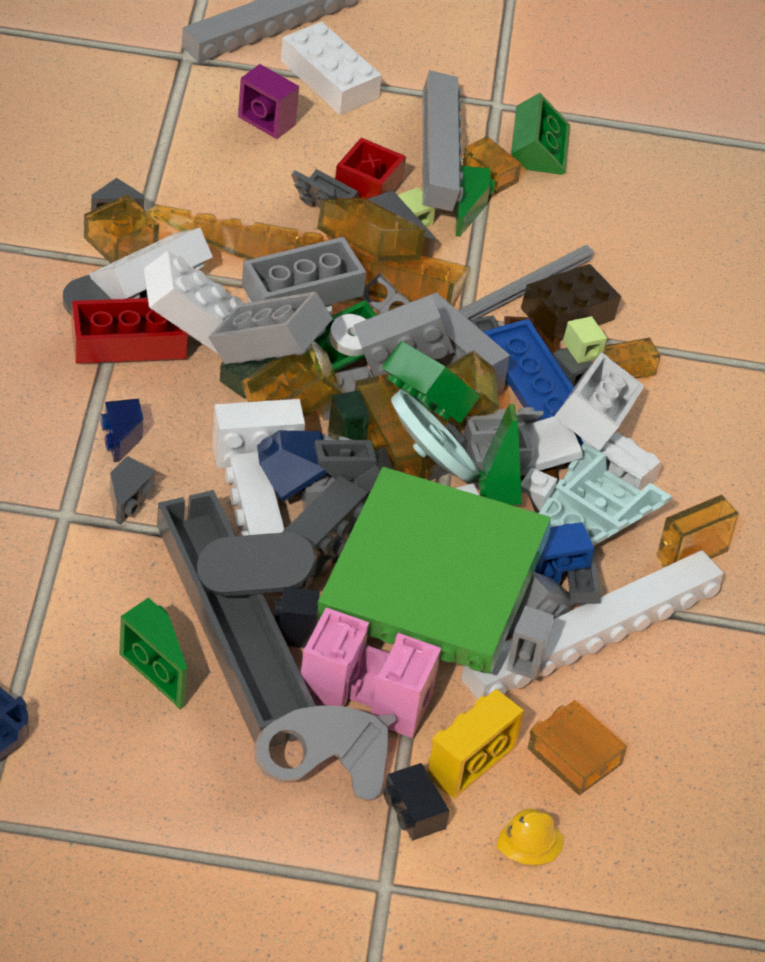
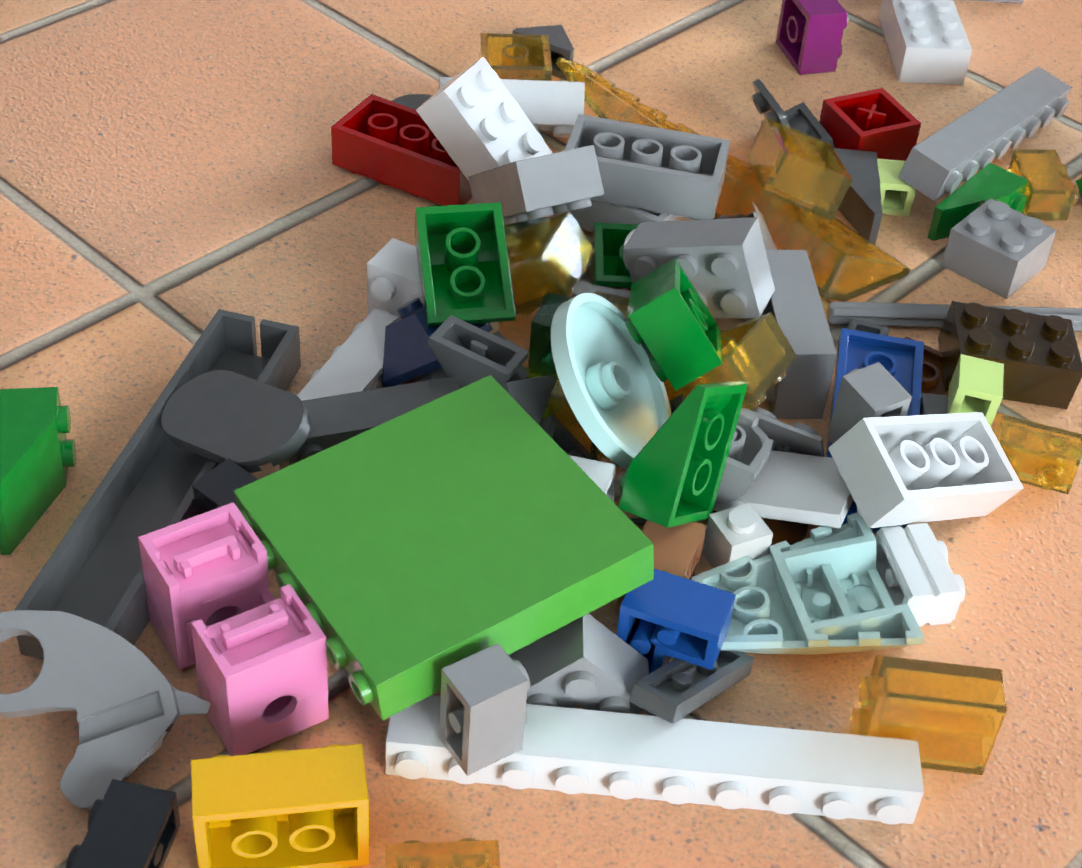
camera: 40 degrees right, 5 degrees down
(124, 426) = (299, 236): clear blue slope -> none
(129, 487) = (228, 286): dark grey slope -> none
(287, 405) = (464, 263): none -> green slope
(507, 227) = (998, 247): none -> light grey brick
(551, 384) = (867, 394): none -> light grey brick

